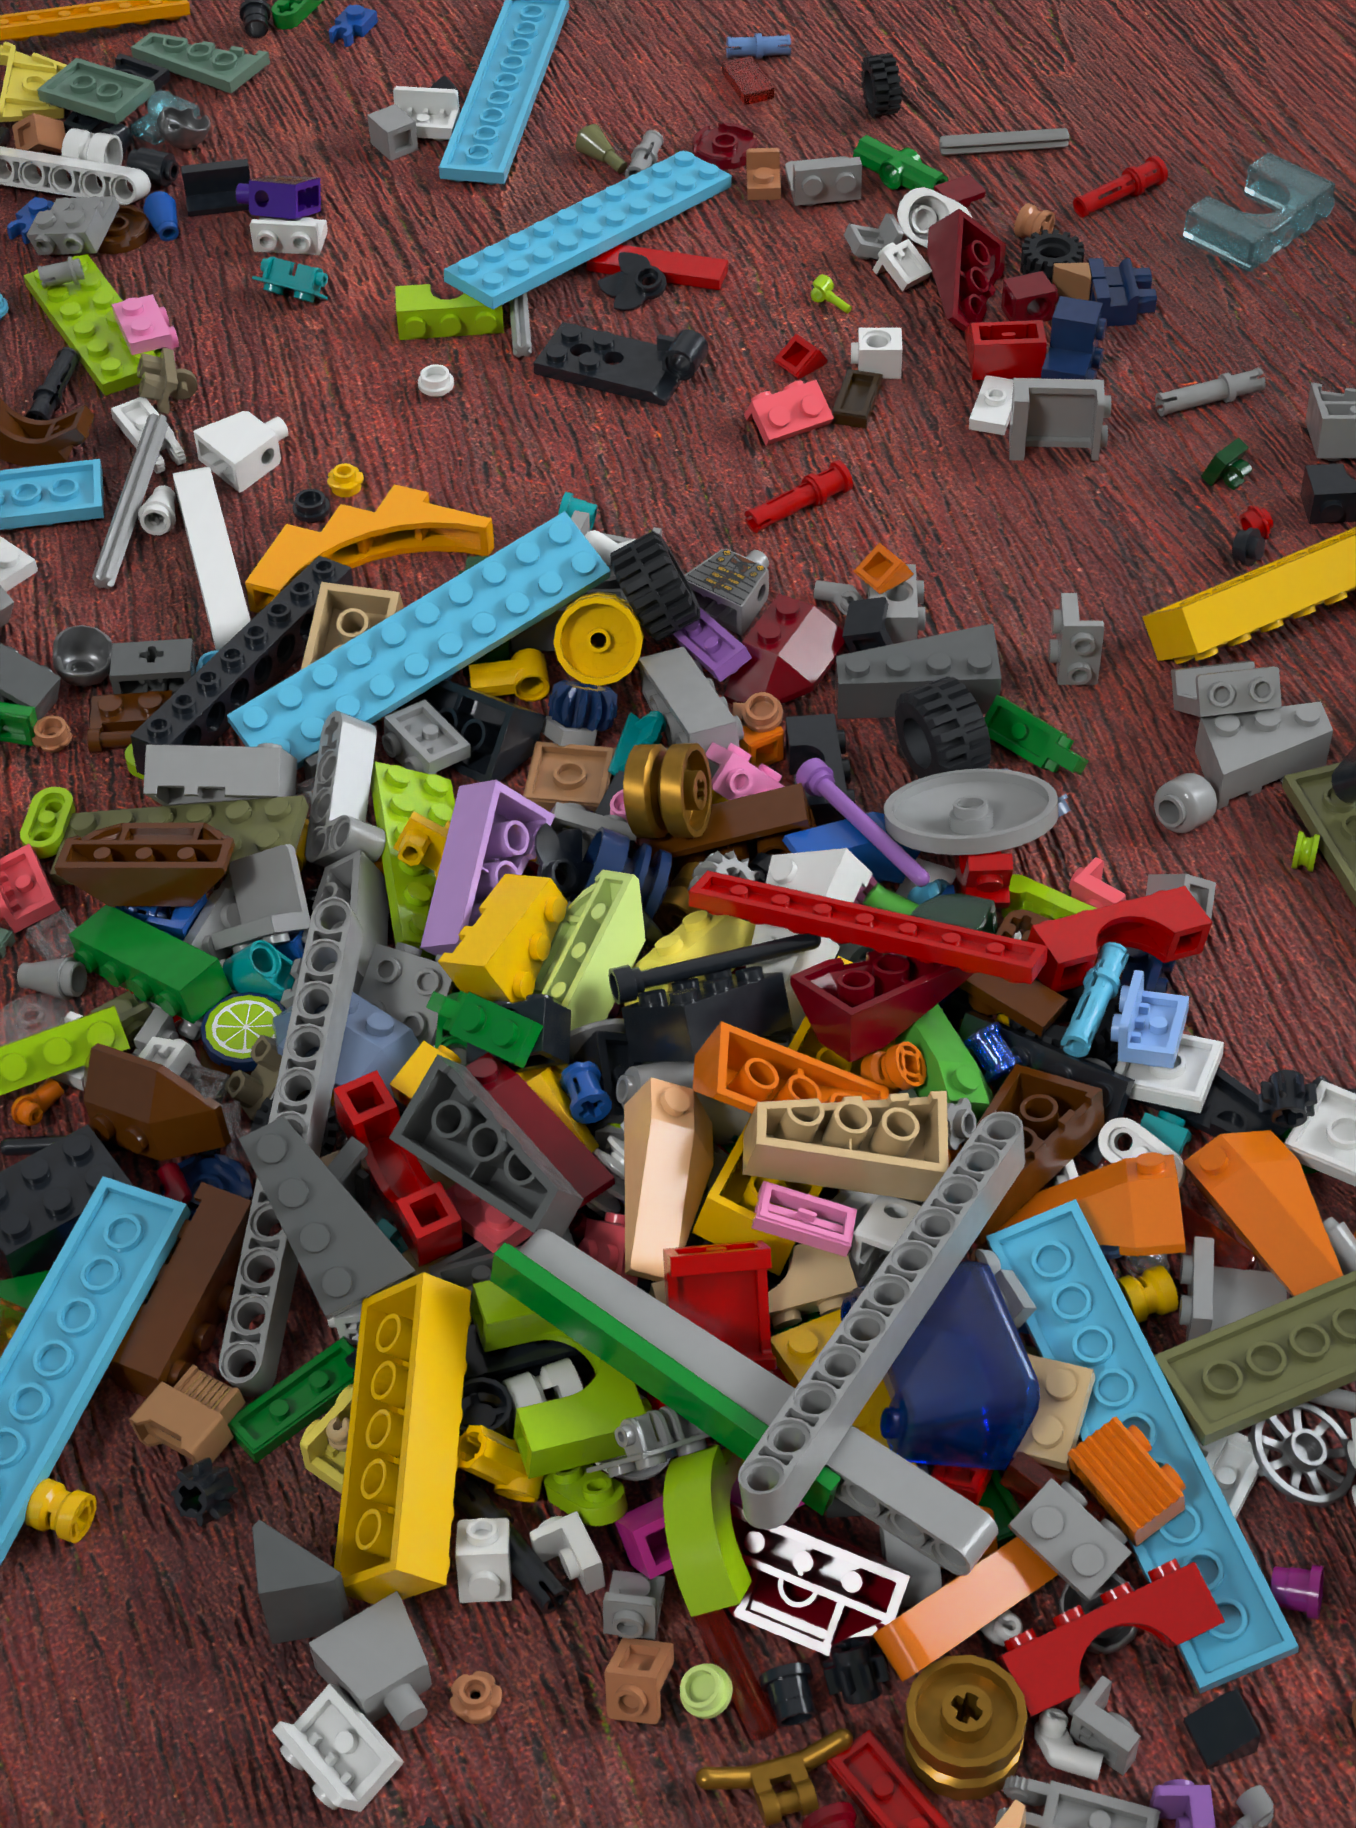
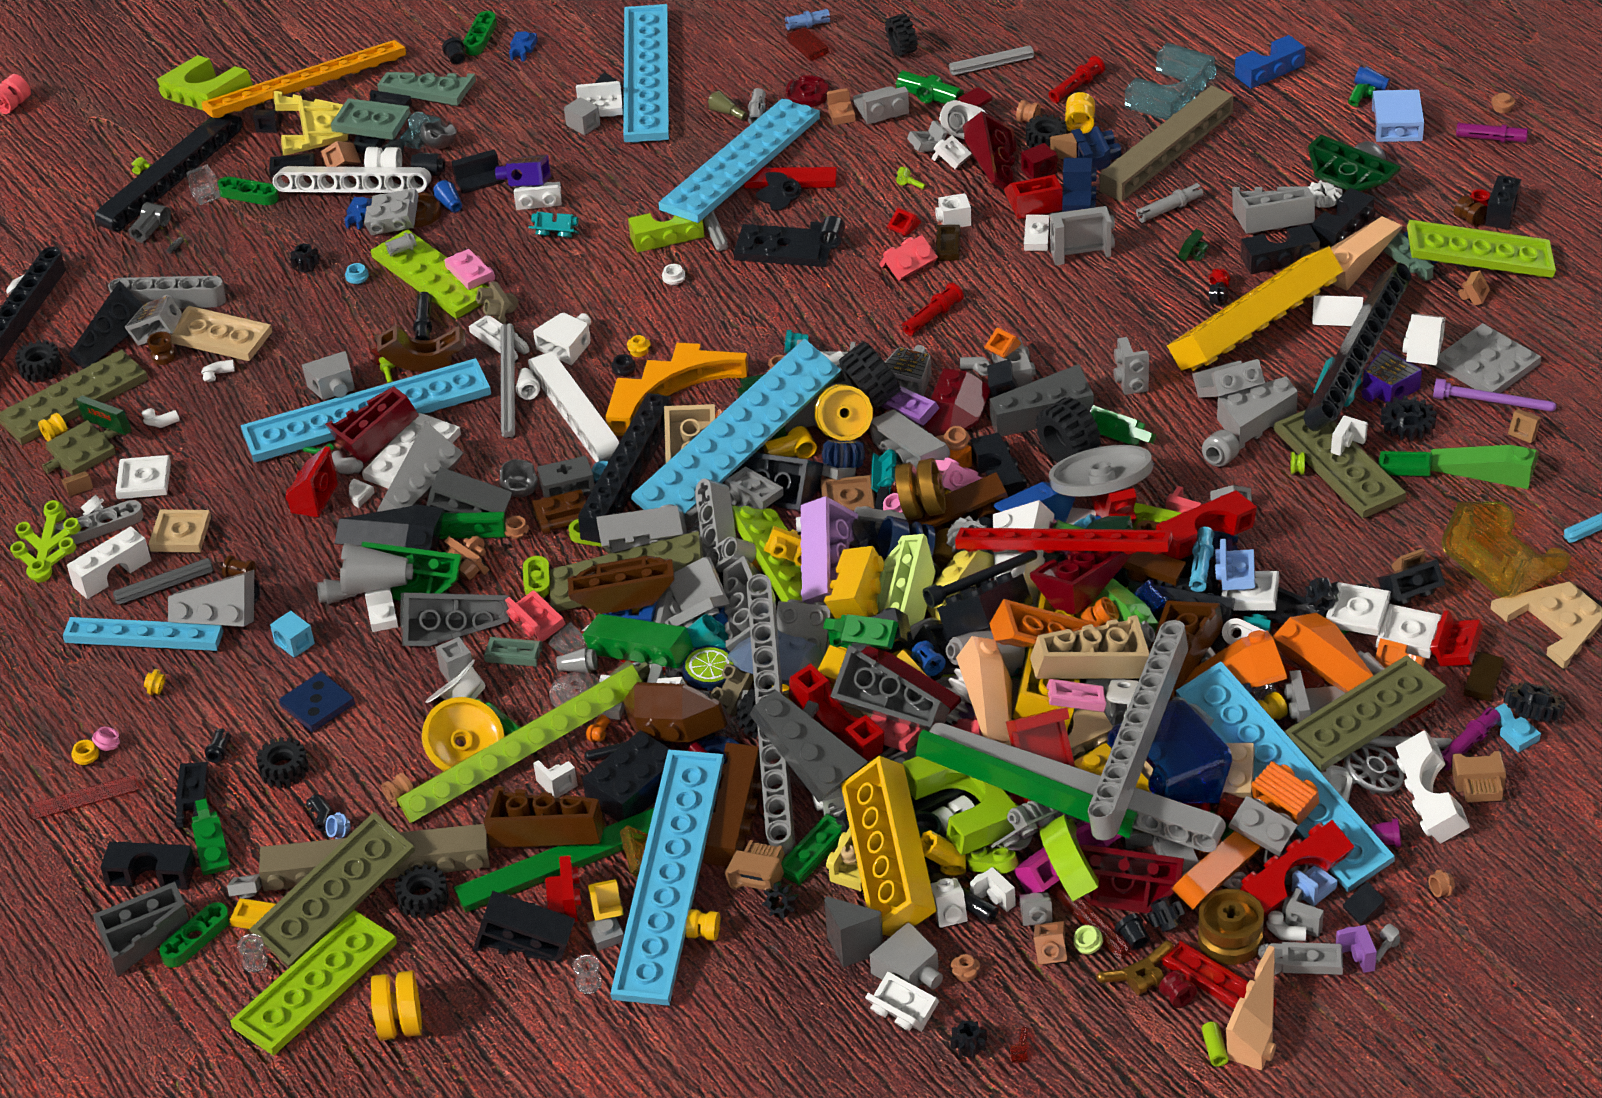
camera: 10 degrees left, 5 degrees down
(819, 781) = (1006, 471): medium lavender piece -> none
(1110, 235) = (1080, 112): none -> yellow wheel
(1138, 1668) = (1314, 884): none -> light blue bracket
(1228, 301) = (1166, 143): none -> dark tan brick

